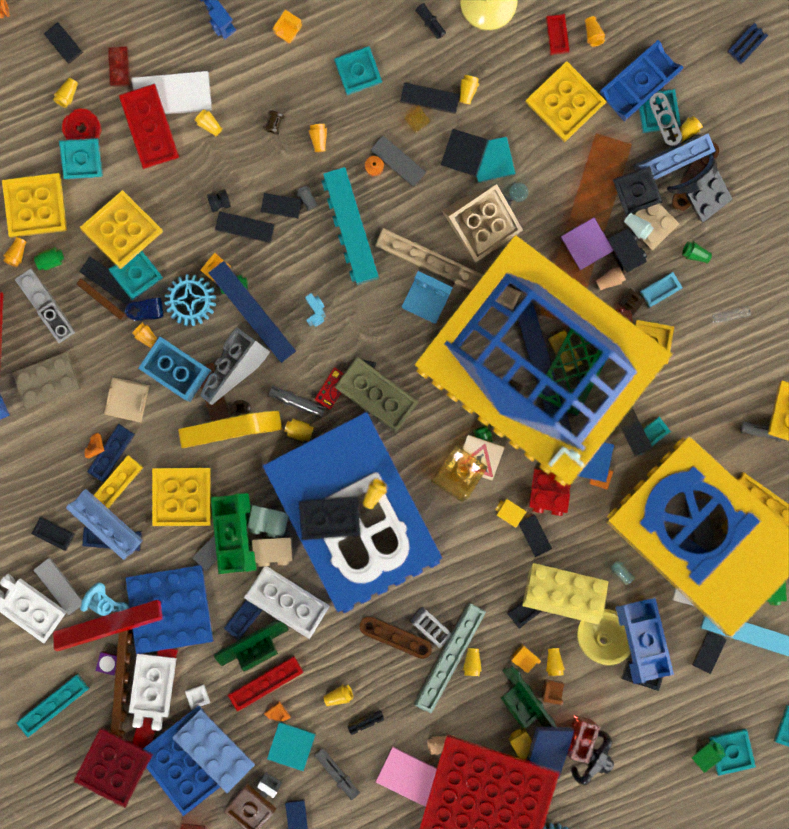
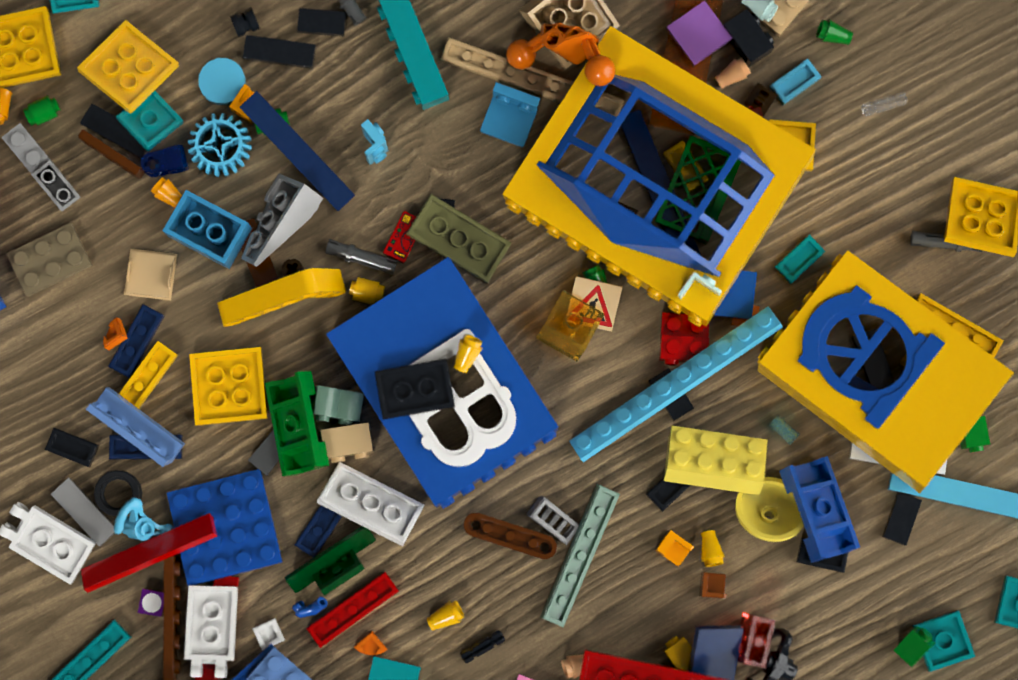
camera: 10 degrees left, 5 degrees down
(75, 565) = (105, 480): none -> black tyre
(196, 247) = (221, 80): none -> medium azure tile
(234, 680) = (312, 609): none -> blue arm
(472, 663) = (608, 559): yellow cone -> none
(480, 245) = (571, 44): none -> orange piece
(509, 512) = (637, 368): yellow brick -> none
(523, 703) = (676, 601): dark green bracket -> none
(540, 529) = (676, 384): none -> medium azure plate
(634, 433) = (780, 256): black tile -> none

